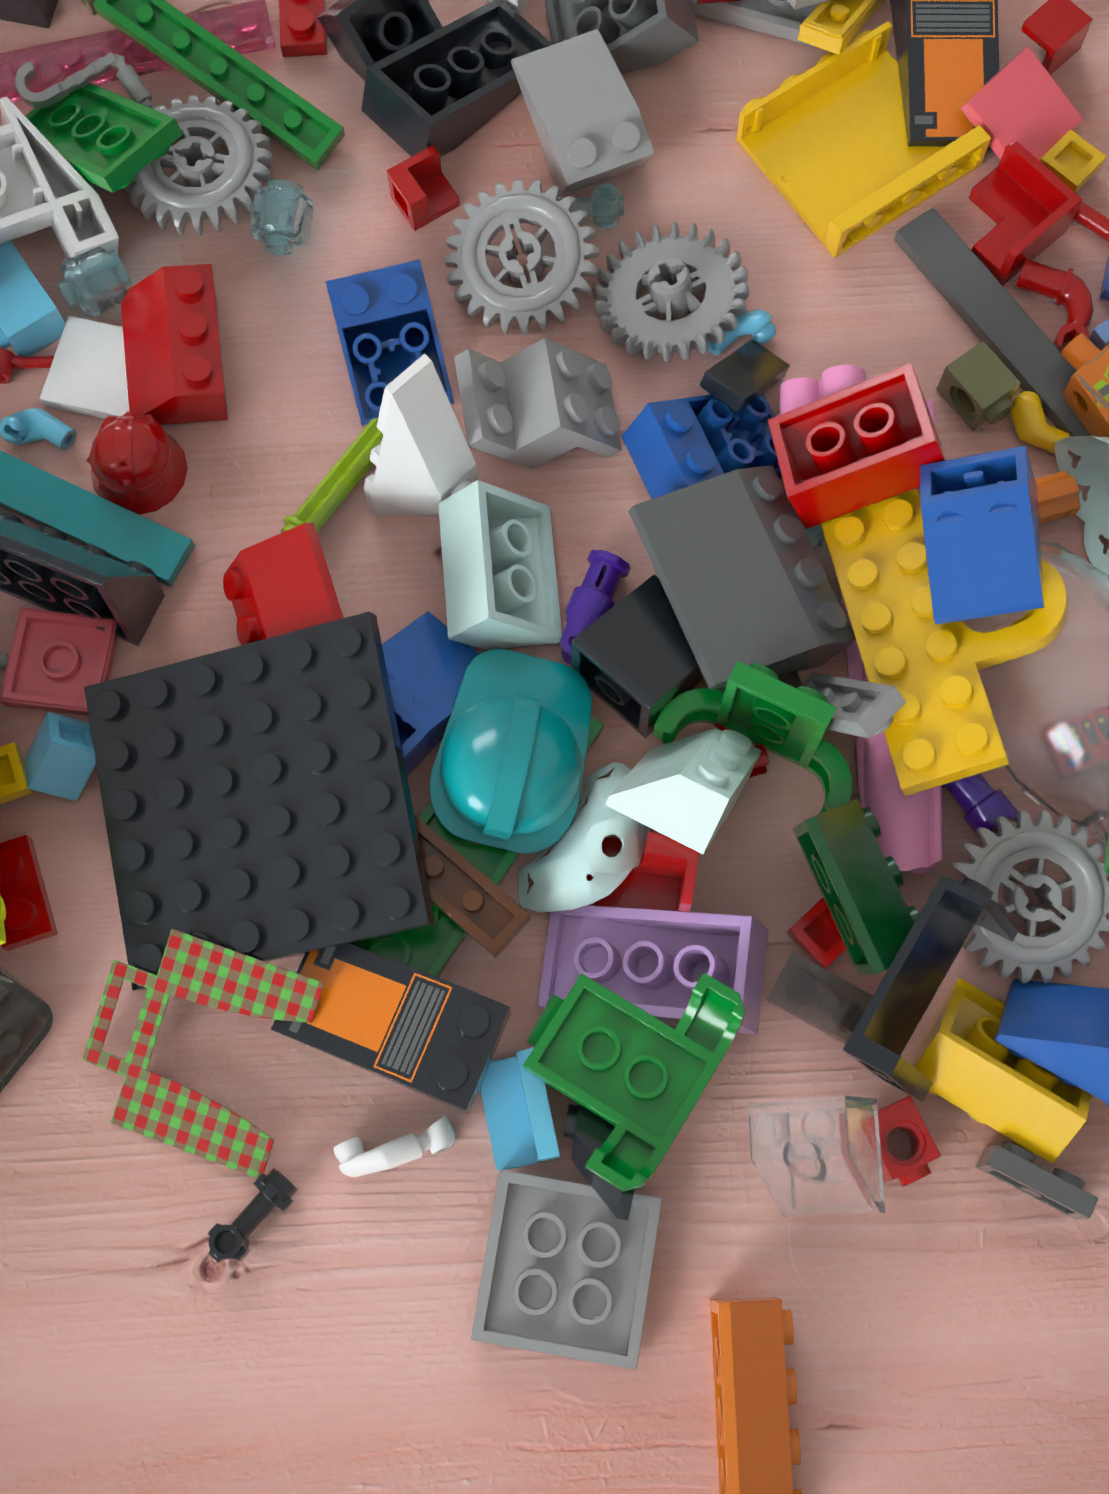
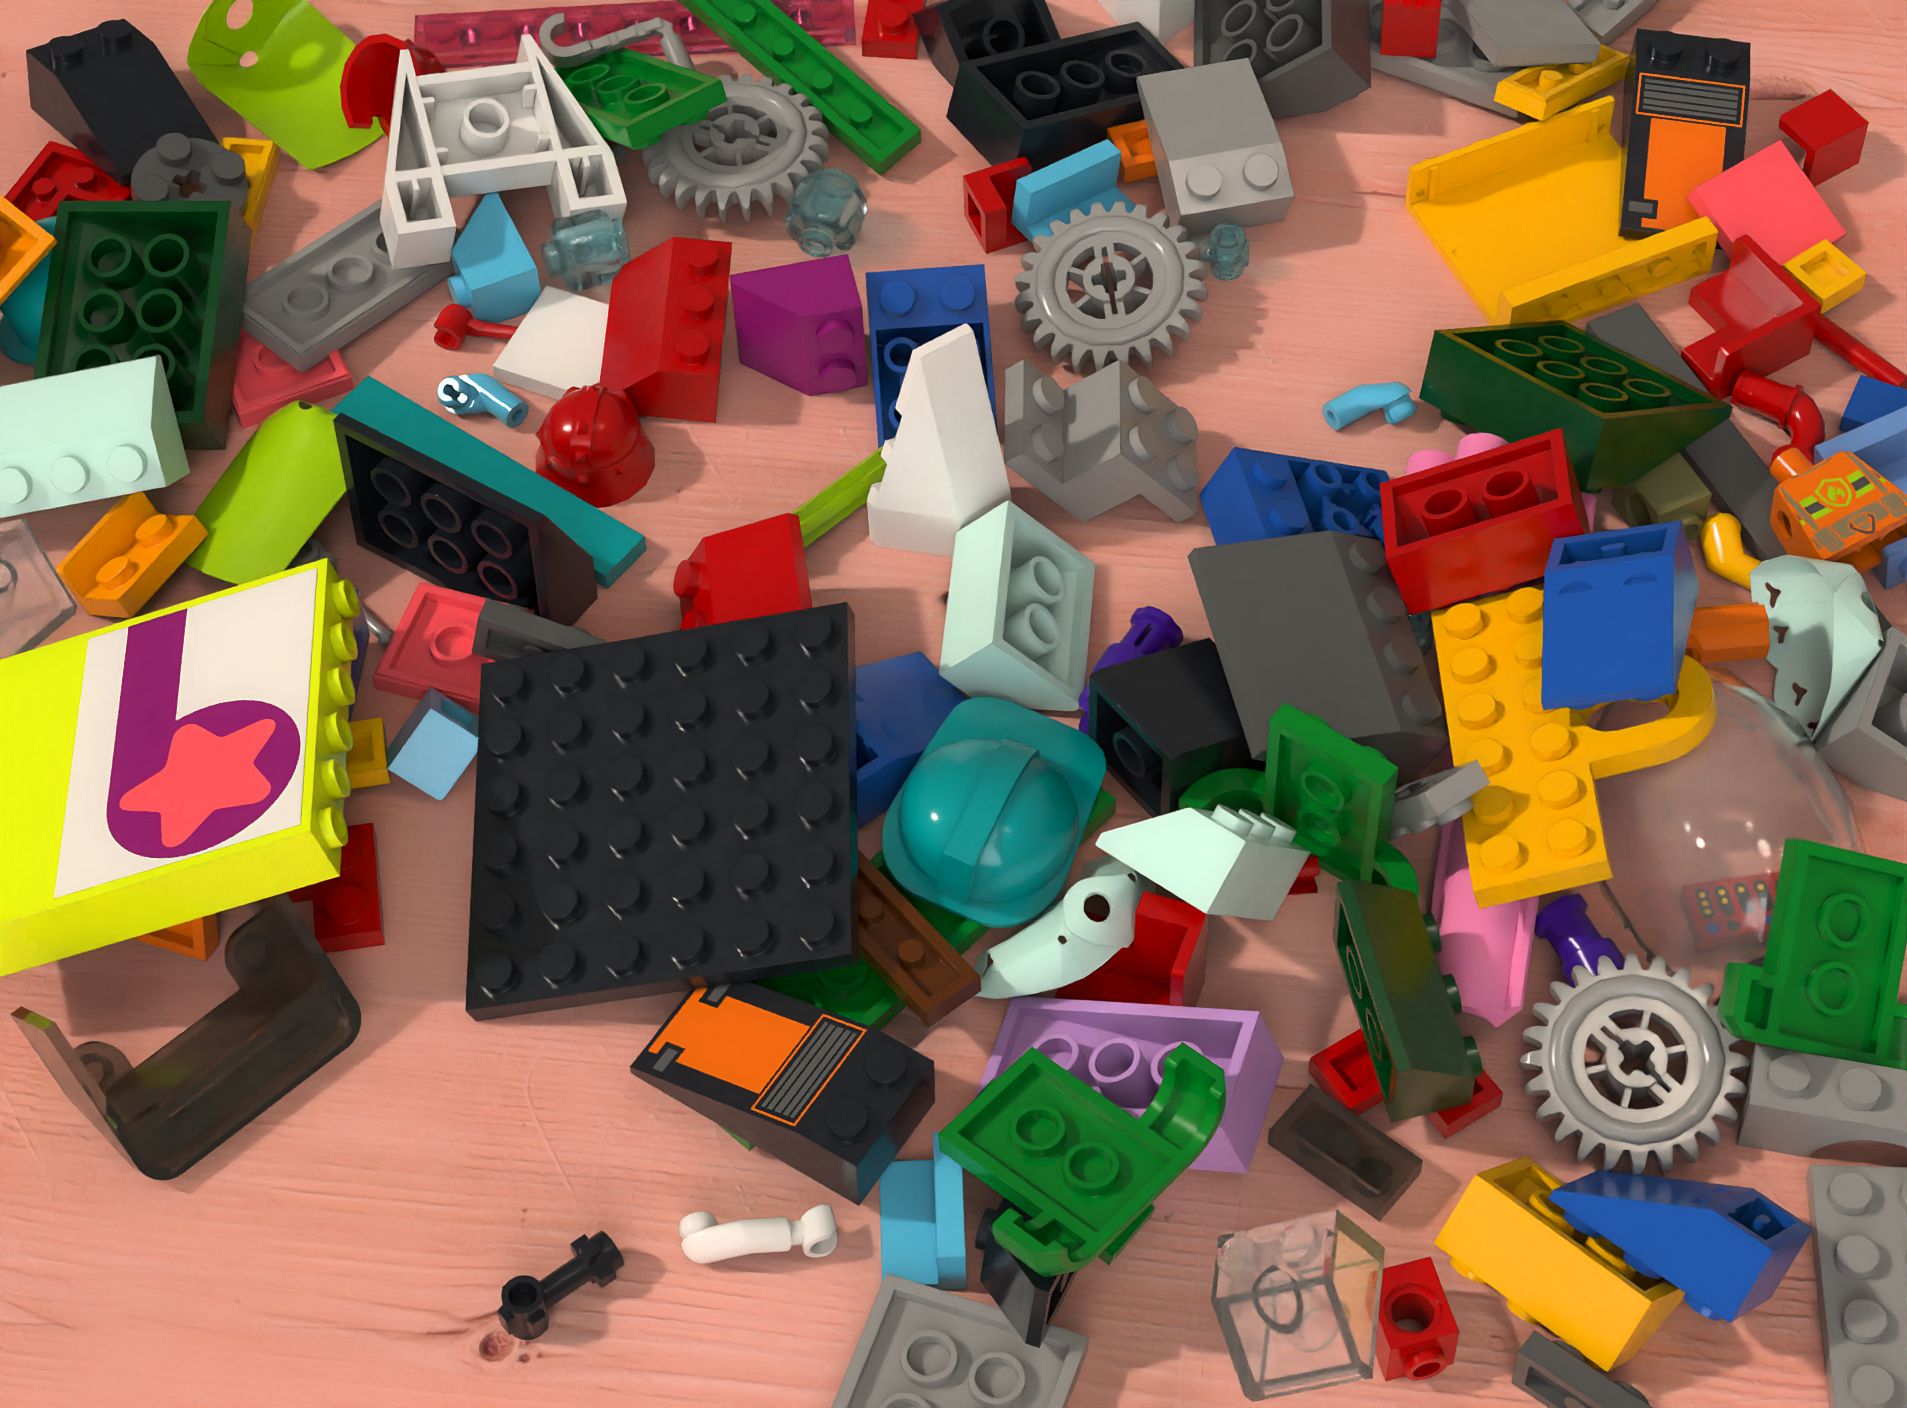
camera: 10 degrees right, 20 degrees down
(109, 655) = (514, 632): none -> dark grey plate
(212, 978) = (487, 1154): piece -> none
(283, 331) = (802, 325): none -> magenta slope
(475, 169) = (1066, 186): none -> medium azure panel
(515, 121) = (1137, 155): none -> orange plate
(665, 271) = (1293, 339): light grey gear -> none
(744, 375) = (1362, 446): black tile -> none
(896, 308) = (1551, 375): none -> dark green slope
(917, 976) = (1461, 1105): black panel -> none

